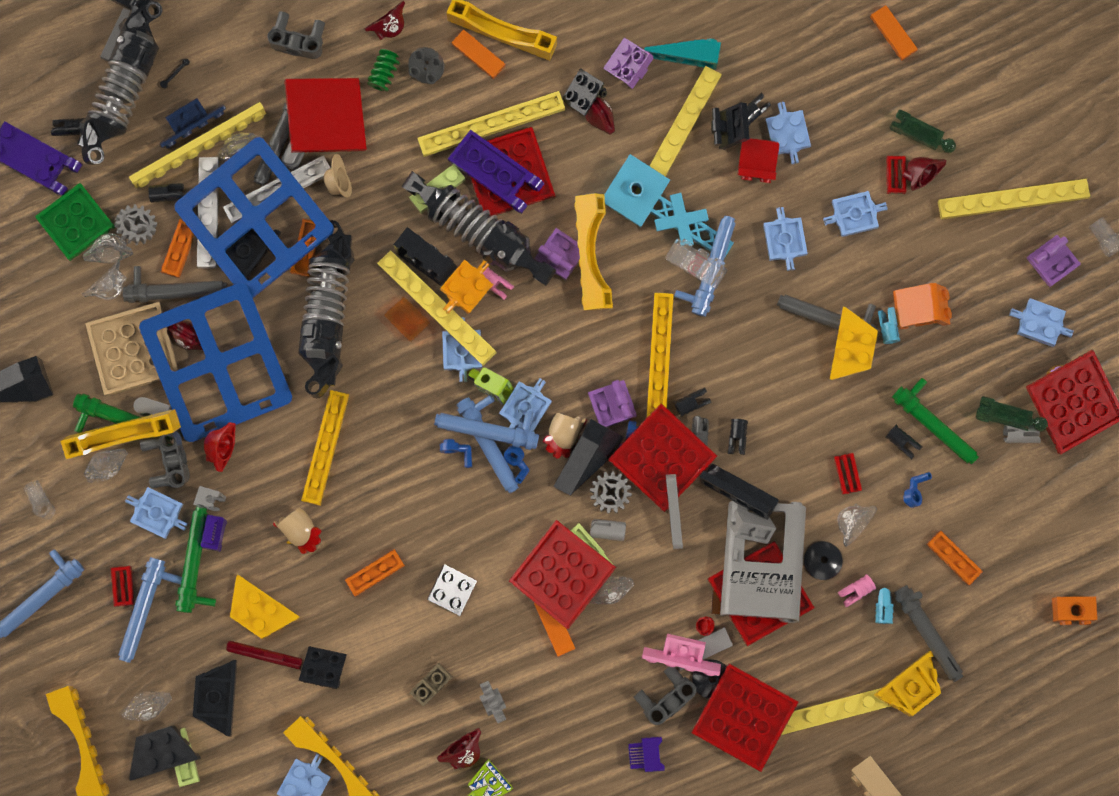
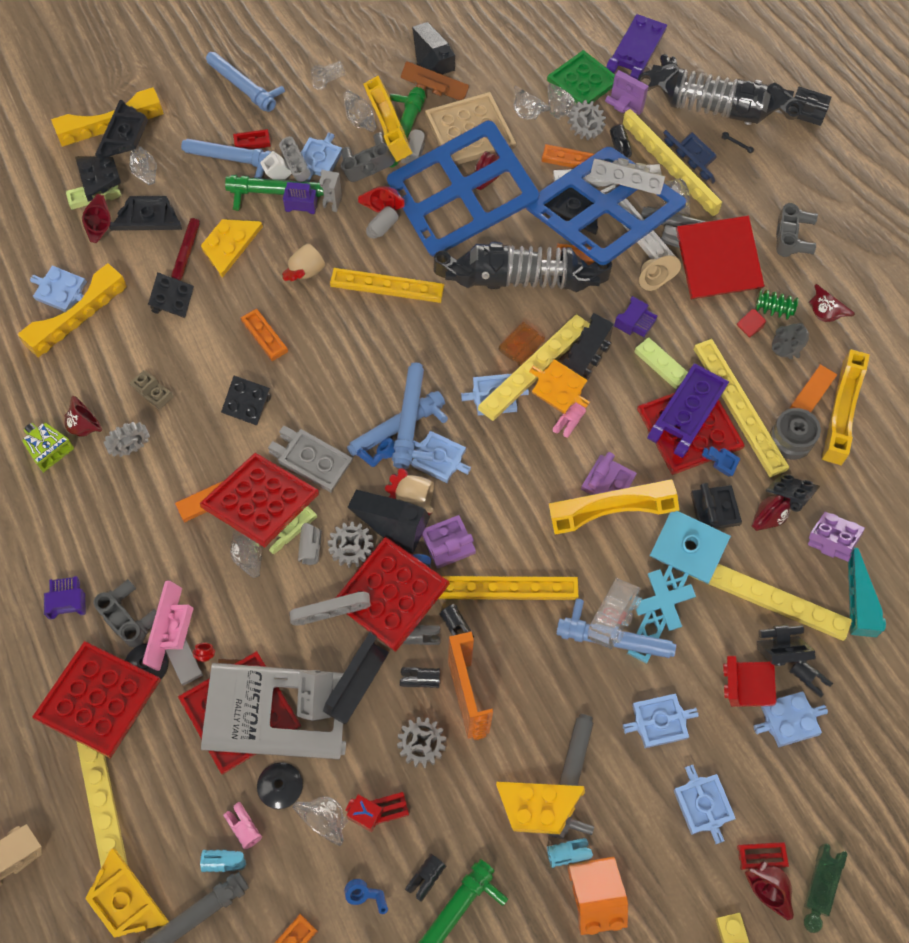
camera: 85 degrees right, 15 degrees down
(65, 383) = (434, 81): none -> dark orange bracket
(107, 176) = (627, 94): none -> medium lavender plate
(109, 723) = (122, 131): none -> black wing
(145, 292) = (523, 133): dark grey cylinder -> none
(160, 534) = (294, 159): none -> light grey beam
(171, 556) = (276, 167): none -> white brick
(221, 190) = (628, 175): none -> light grey bracket
(225, 748) = (96, 218): none -> dark red hat
(250, 448) = (382, 223): none -> light grey arm
(387, 205) = (636, 318): none -> dark purple piece
(400, 97) = (751, 323): none -> red slope
(450, 446) = (393, 389): blue plate -> none
(492, 384) = (461, 415): lime torso -> none
(495, 239) = (614, 411): black piece -> none
(518, 527) = (311, 458): none -> light grey tile
(526, 79) = (795, 433): none -> dark grey wheel
(547, 147) = (724, 460): none -> blue plate
(594, 162) = (716, 506): none -> black plate
(761, 396) = (459, 657): none -> orange panel
(791, 431) = (430, 737): none -> light grey gear
(853, 487) = (364, 812): none -> red brick

